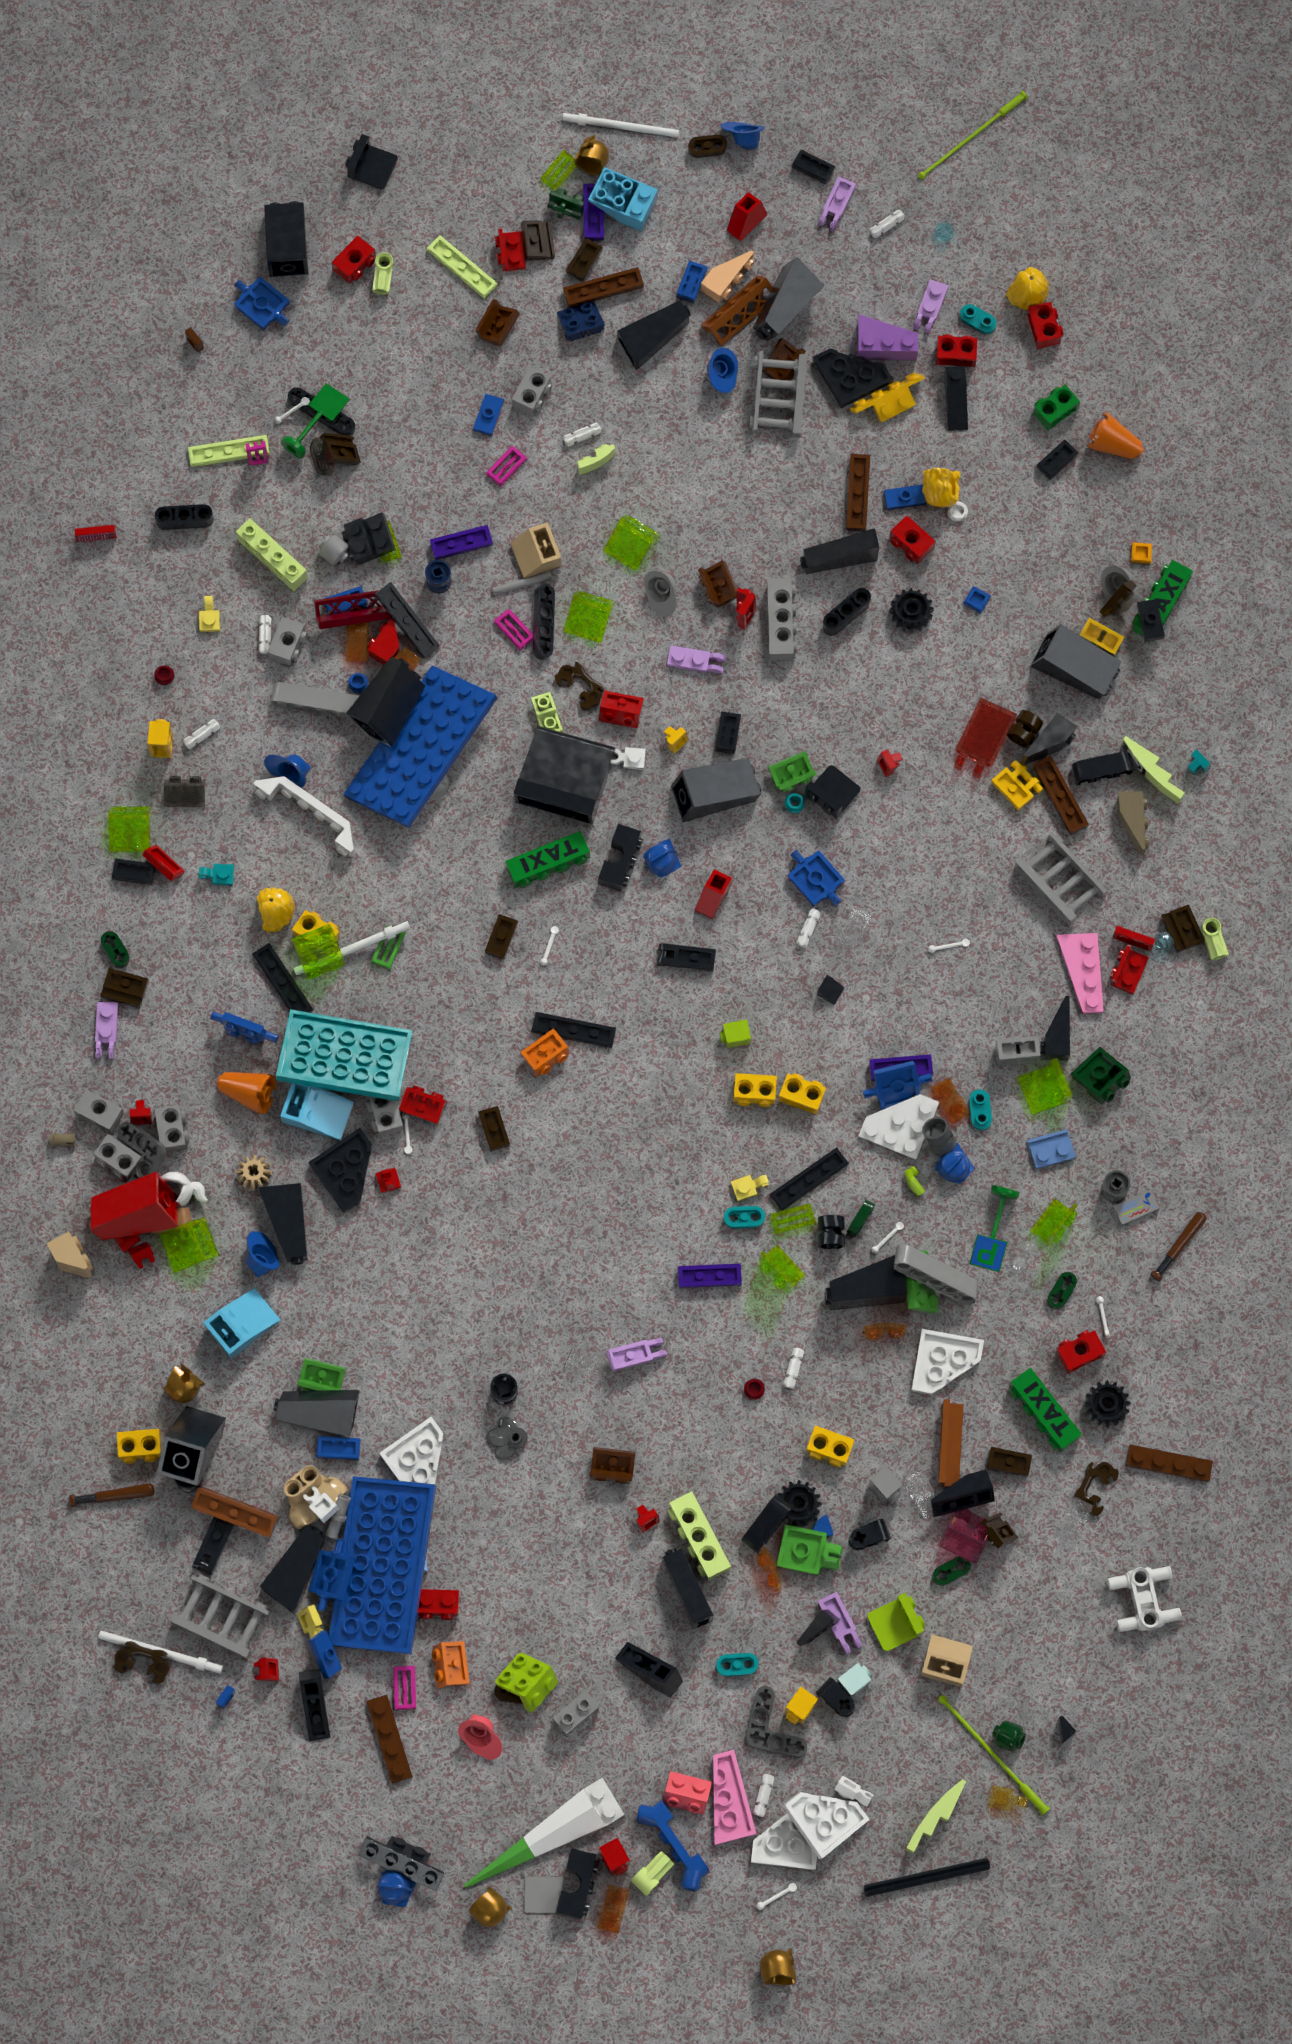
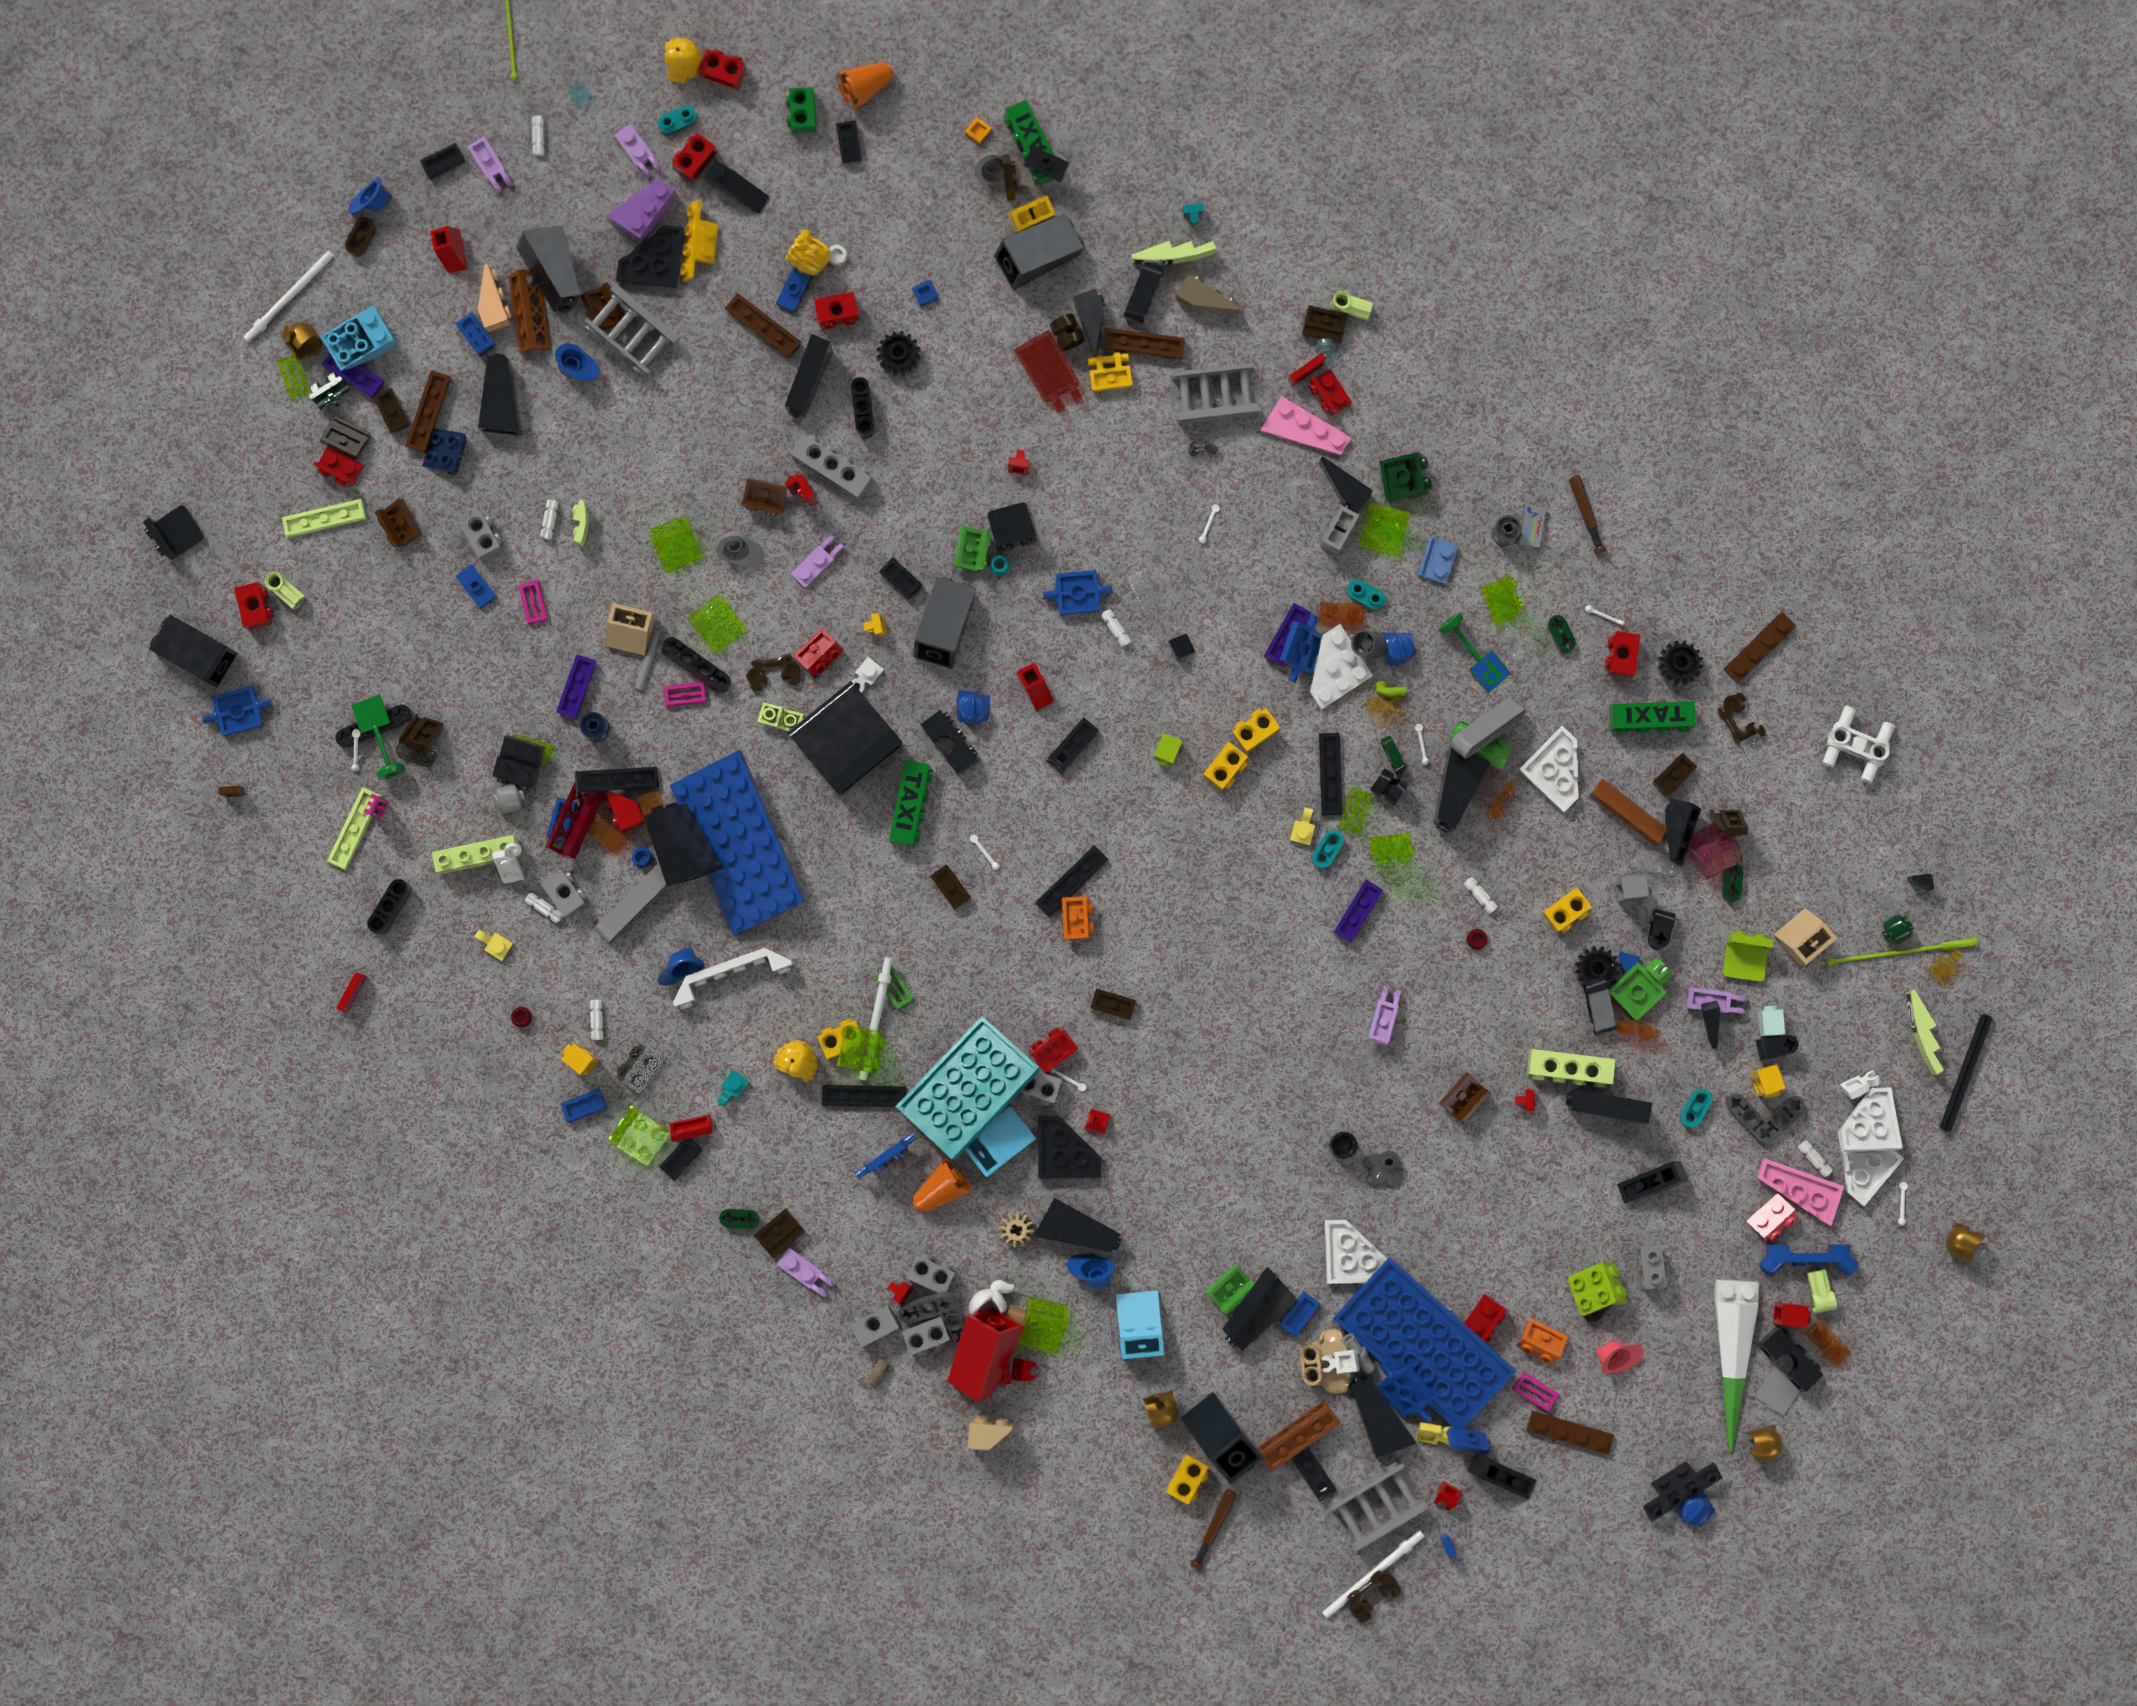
camera: 50 degrees left, 10 degrees up
(125, 769) = (583, 1105): none -> blue plate
(280, 582) = (508, 864): none -> white hinge
(894, 1178) = (1379, 705): none -> clear yellow plate
(1011, 898) = (1202, 445): none -> clear smoke arm

